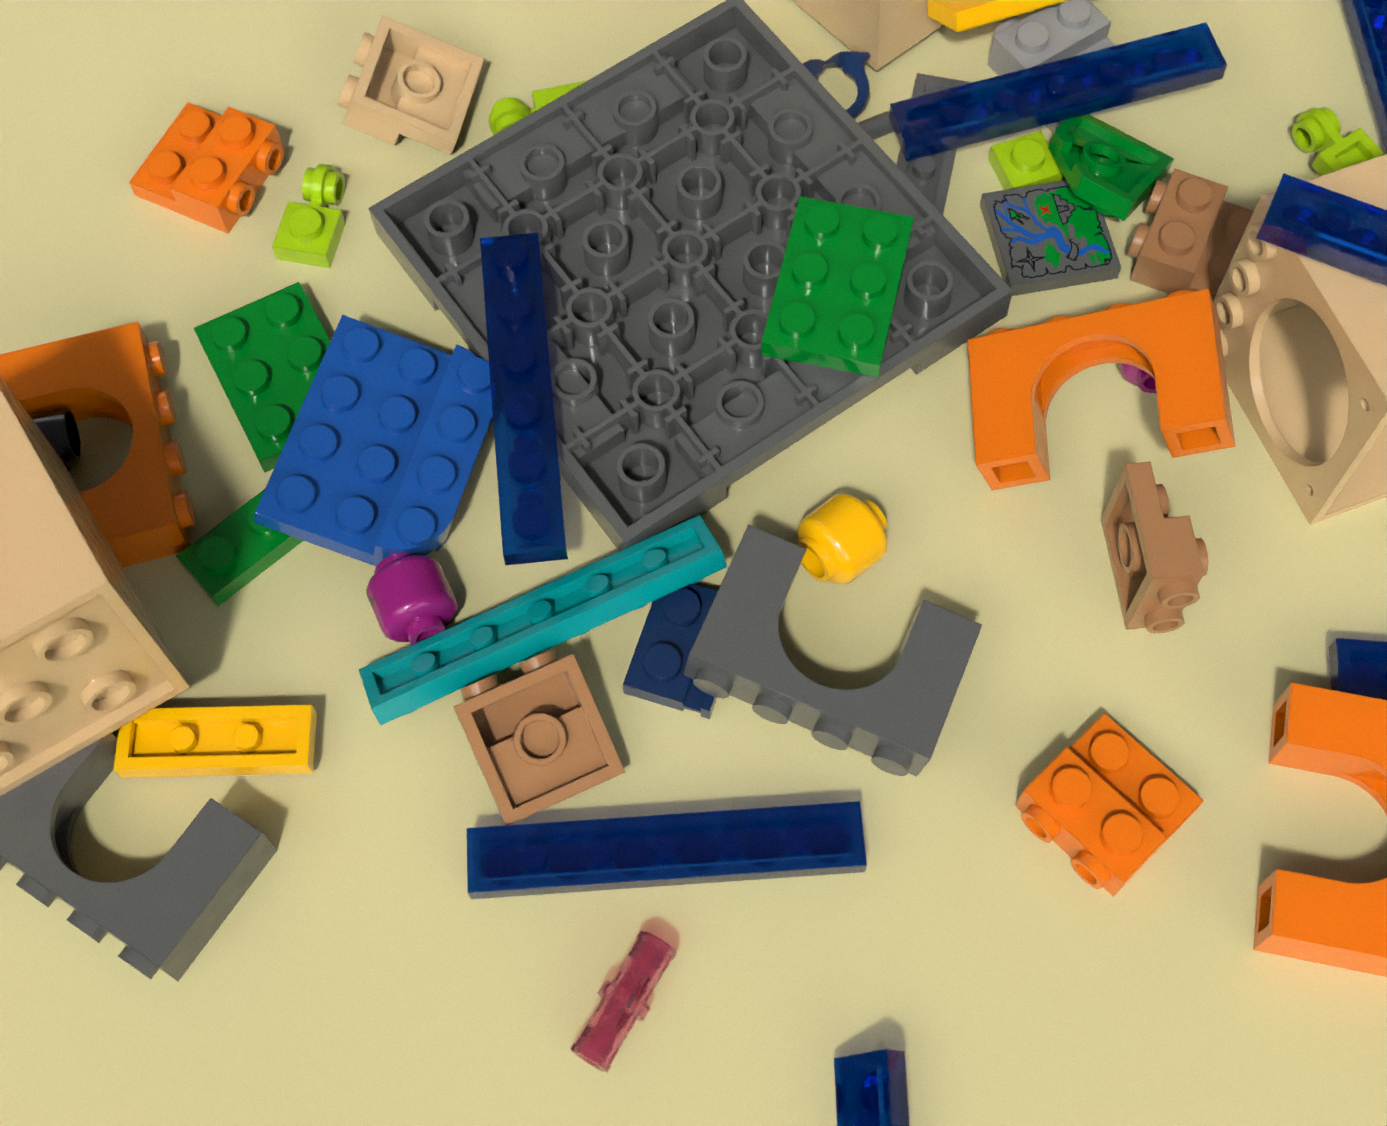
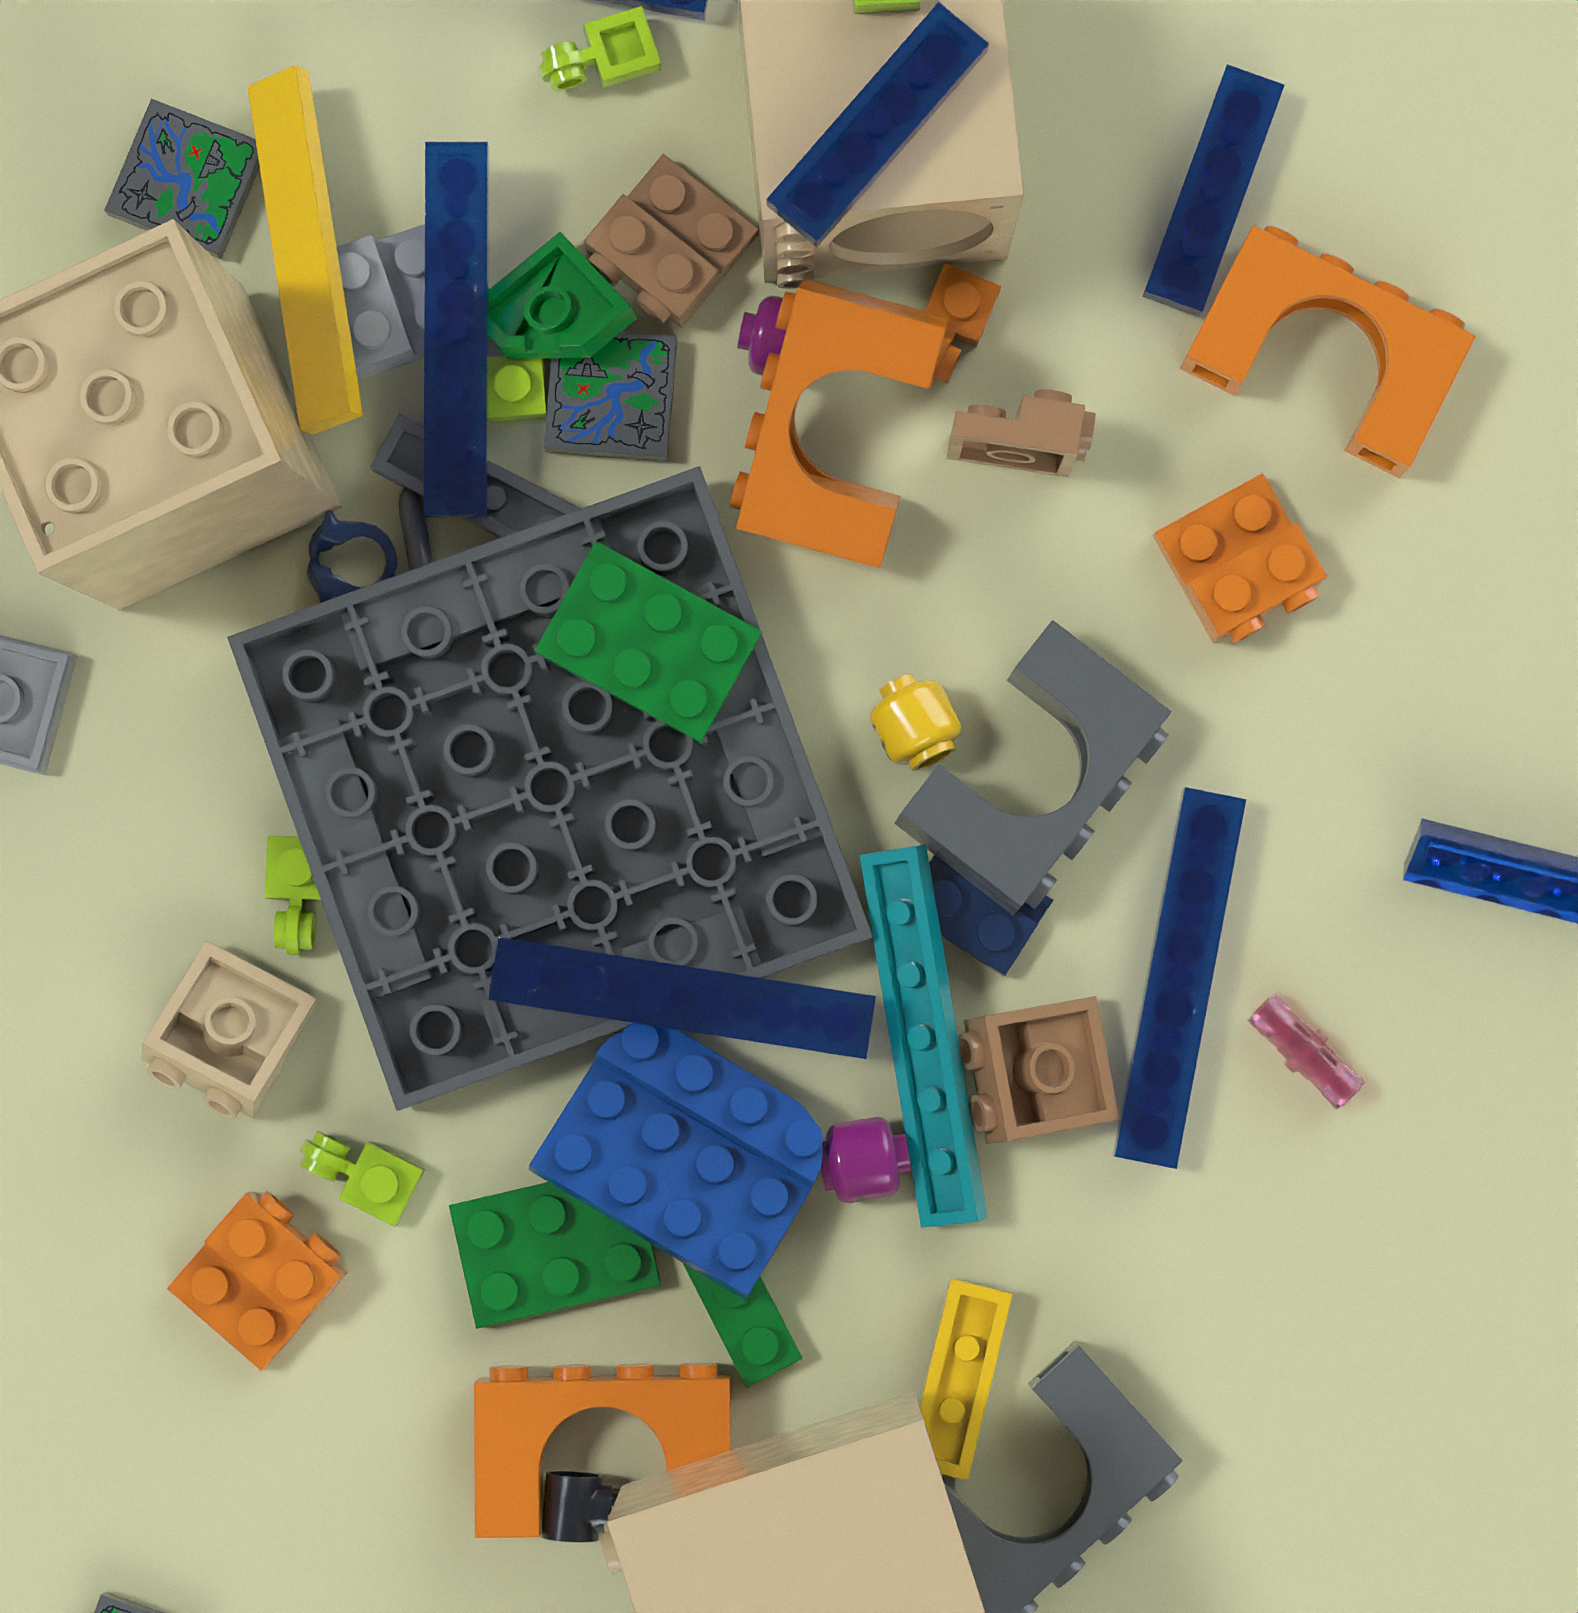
camera: 75 degrees left, 20 degrees up
(1242, 487) = (968, 305): none -> orange plate

